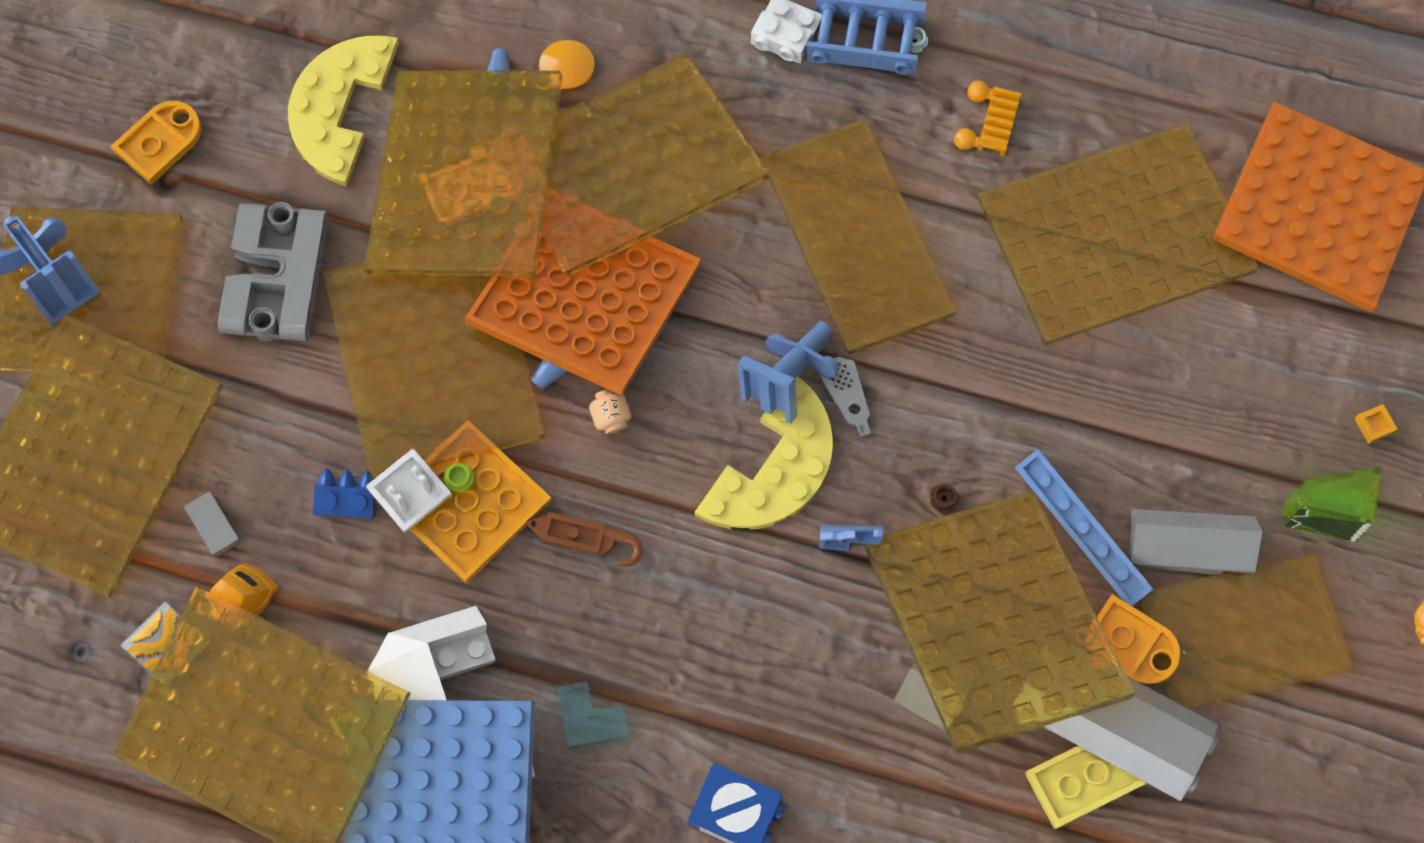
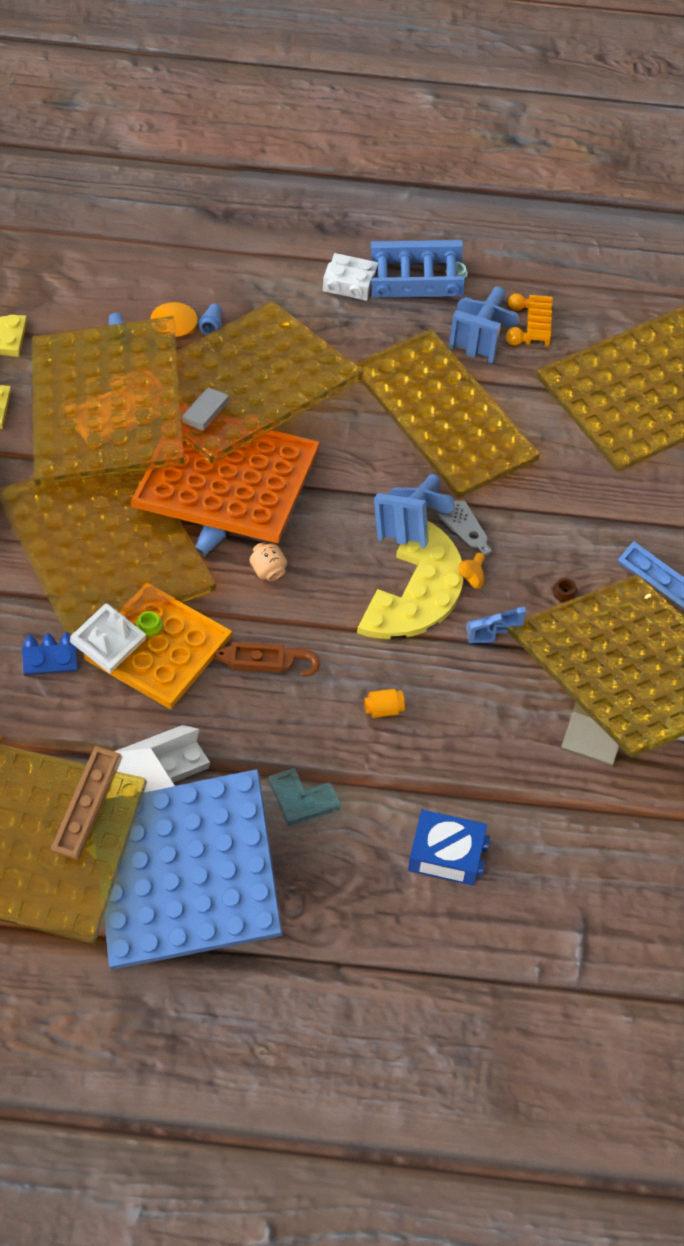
camera: 15 degrees left, 15 degrees down
(340, 709) = (86, 803): none -> medium nougat tile
(572, 206) = (205, 409): none -> light grey tile
(610, 71) = (211, 319): none -> medium blue cone
(703, 615) = (384, 703): none -> light orange brick
(842, 458) = (473, 571): none -> light orange rock
(918, 136) = (479, 332): none -> medium blue piece

